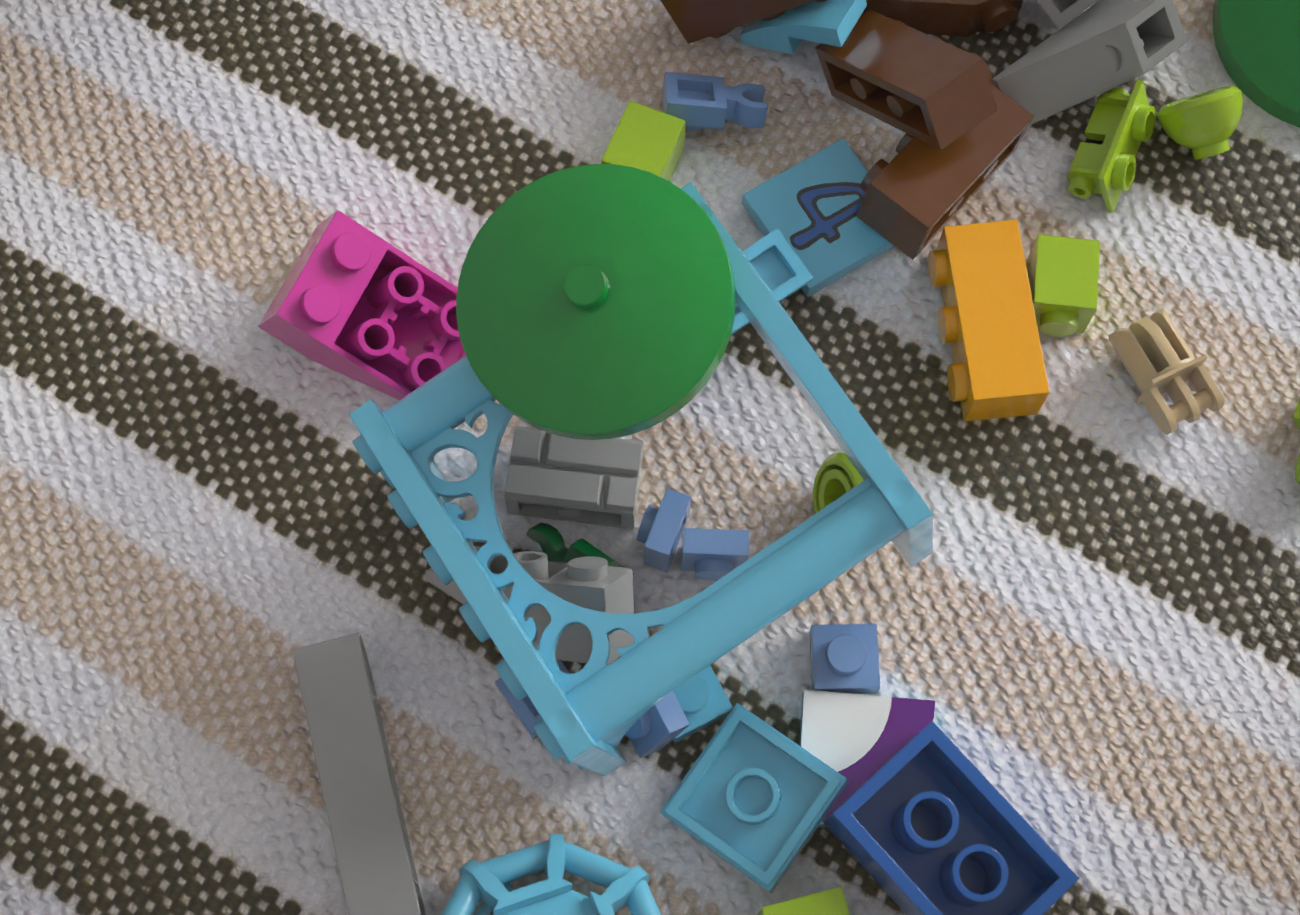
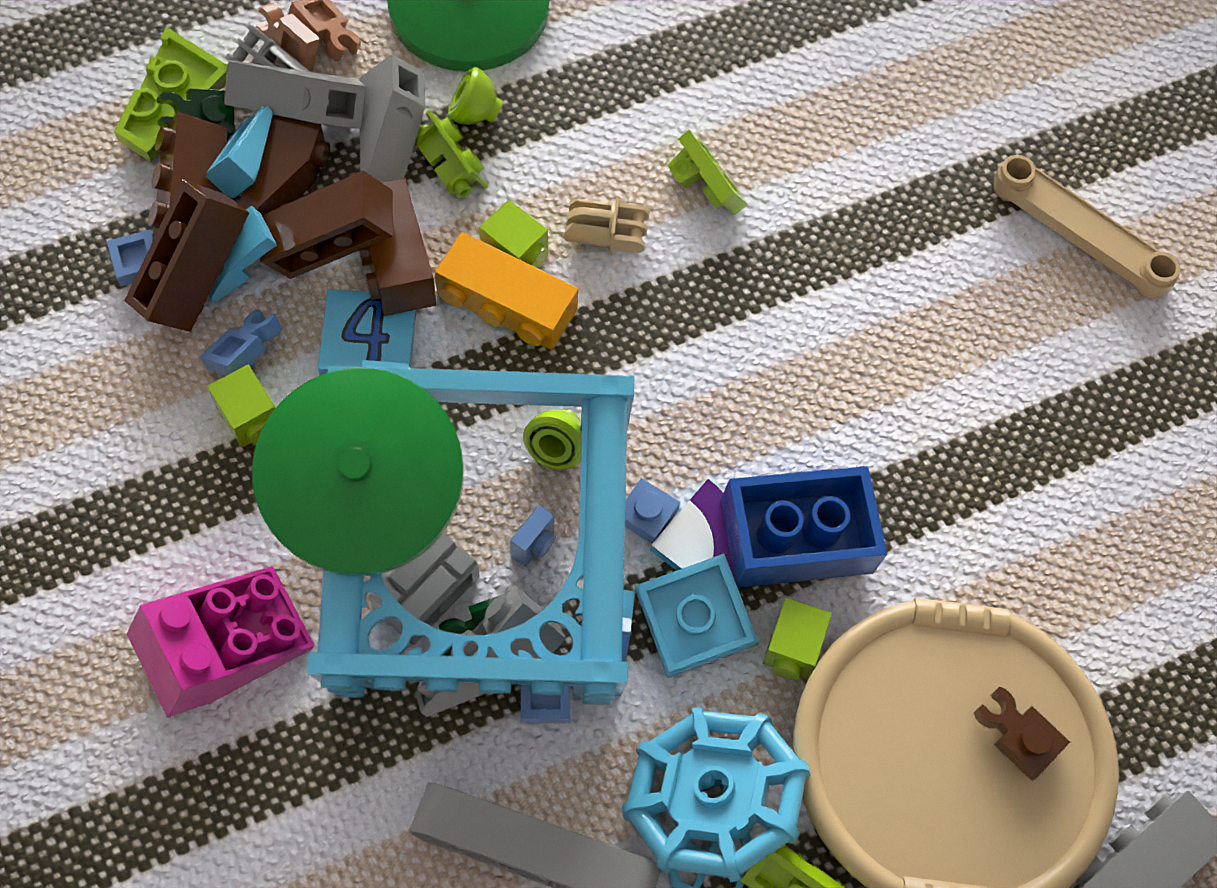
camera: 60 degrees left, 5 degrees down
(663, 529) = (497, 555): medium blue plate -> none

